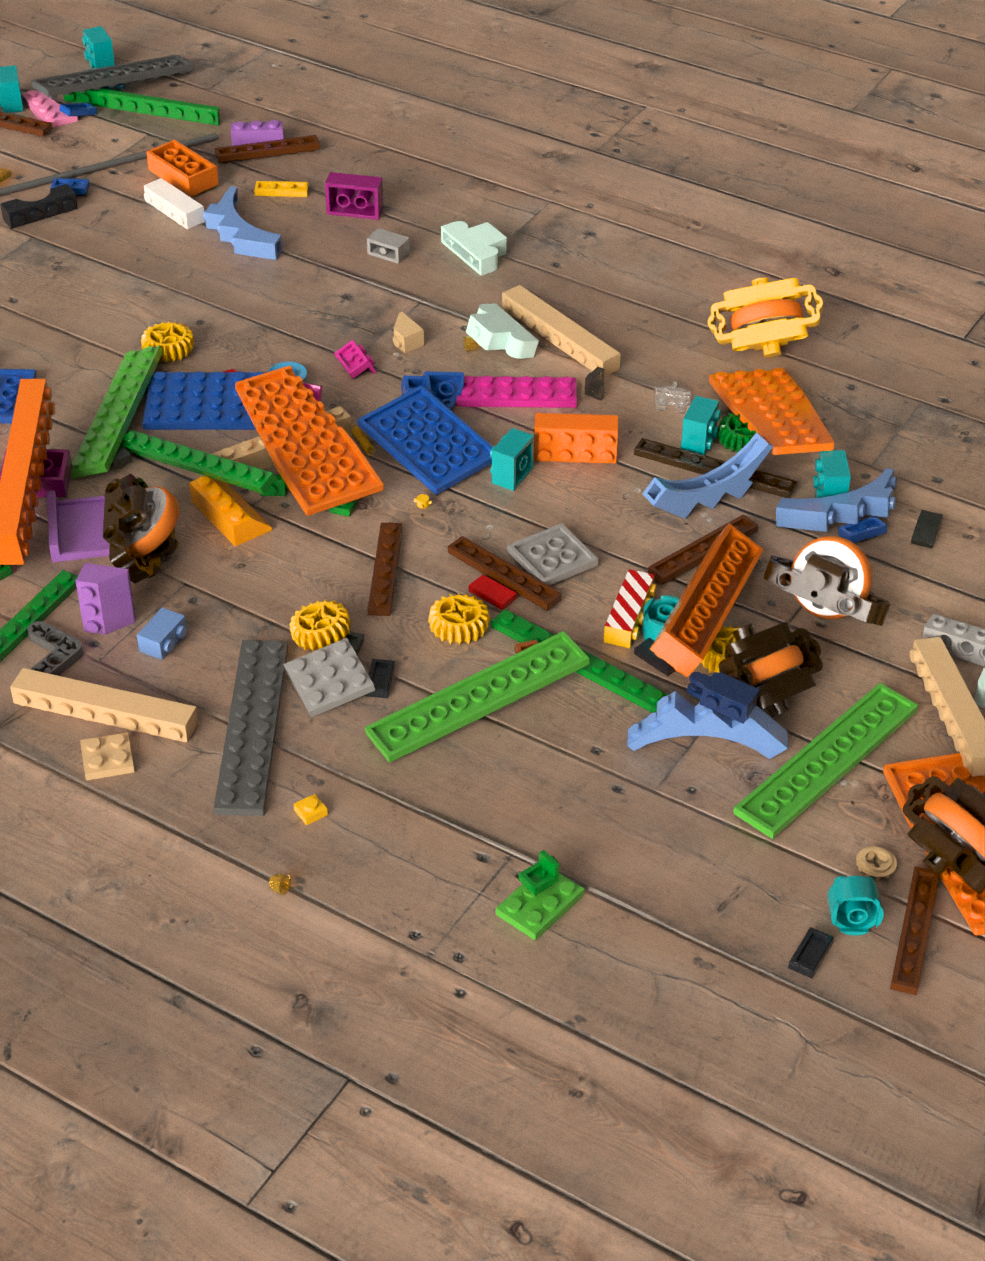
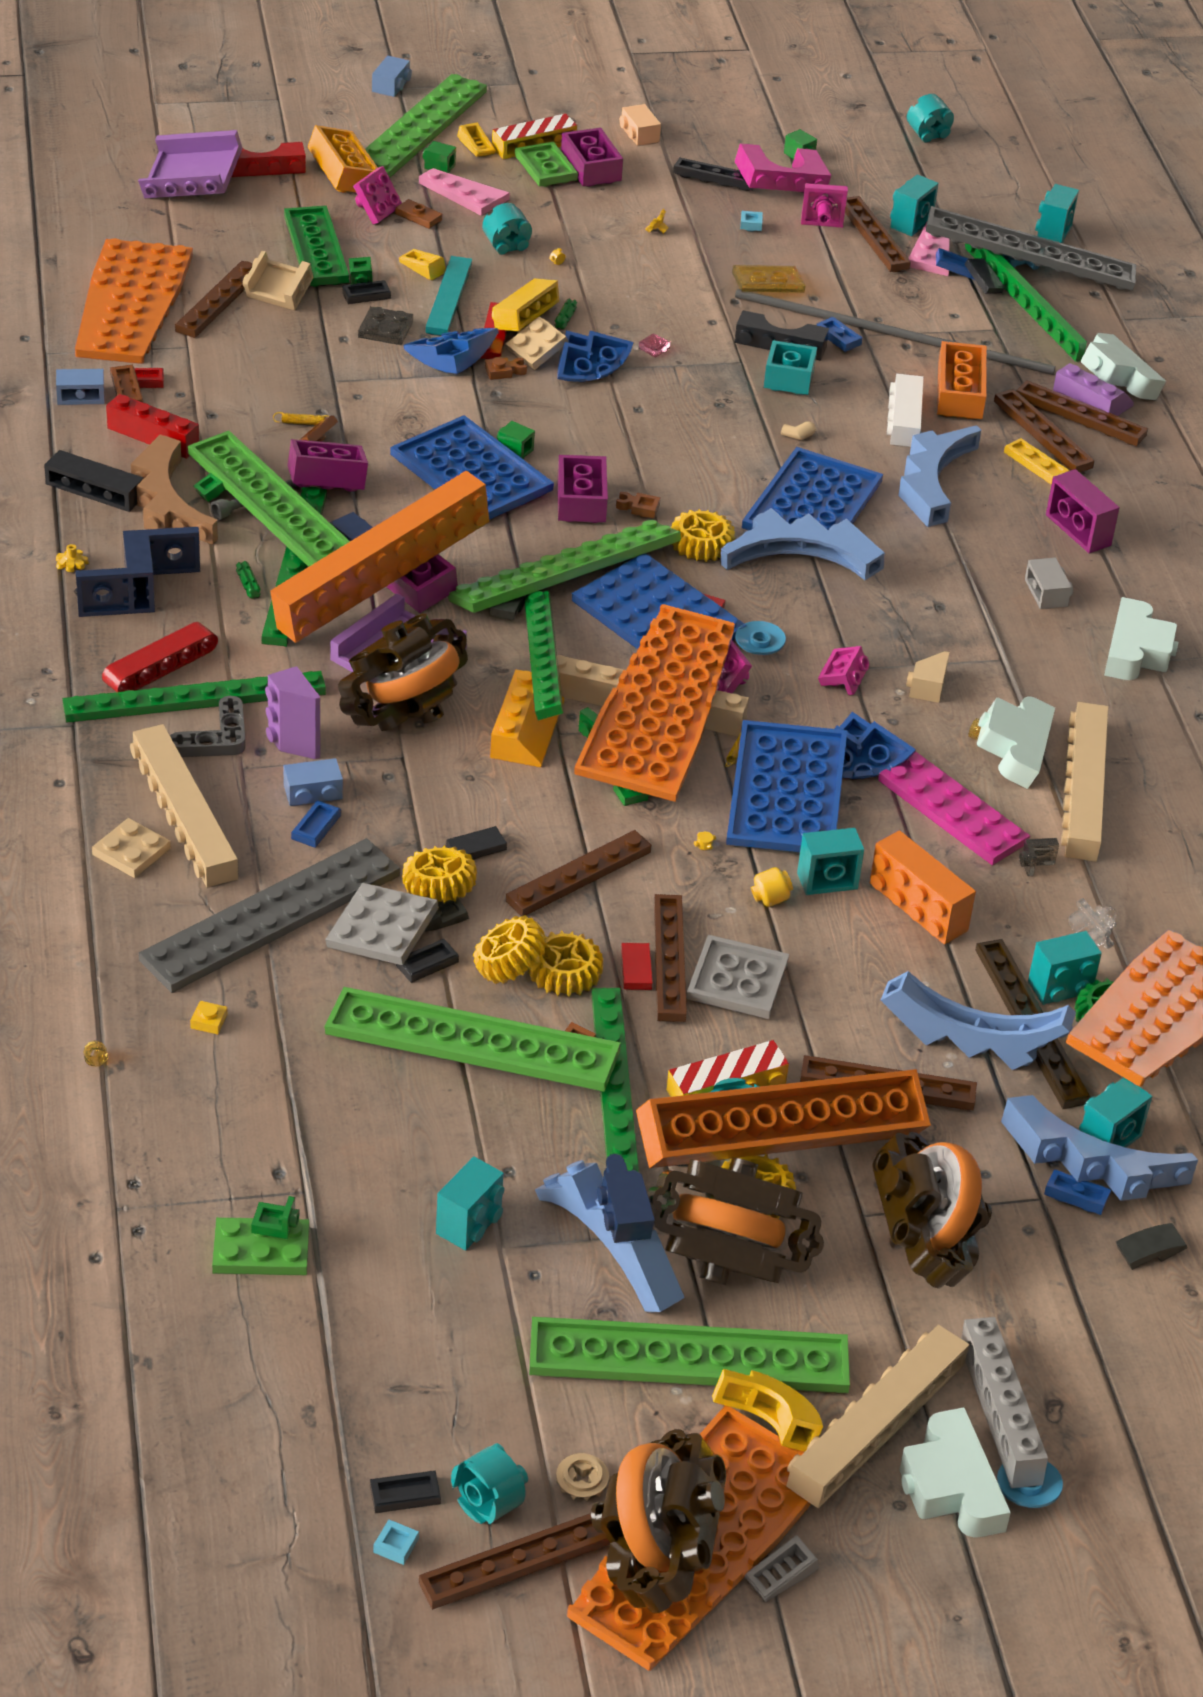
camera: 45 degrees right, 0 degrees up
(60, 360) = (582, 488): none -> magenta brick
(76, 219) = (790, 367): none -> teal brick
(104, 107) = (984, 276): none -> black tile
(104, 348) = (641, 504): none -> dark orange plate
(130, 253) = (799, 432): none -> tan arm
(196, 656) = (316, 824): none -> blue tile
(198, 284) = (816, 486): none -> blue plate
(255, 110) = (1122, 367): none -> light aqua brick
(257, 294) = (805, 536): none -> medium blue arch
(264, 170) = (1044, 431): none -> reddish brown plate
(308, 591) = (479, 843): none -> black tile
(421, 629) = (510, 949): none -> yellow gear
(498, 496) = (772, 887): none -> yellow head
(621, 777) = (469, 1203): none -> teal brick
(851, 979) = (396, 1542): none -> medium azure plate
(911, 742) = (773, 1401): none -> yellow arch

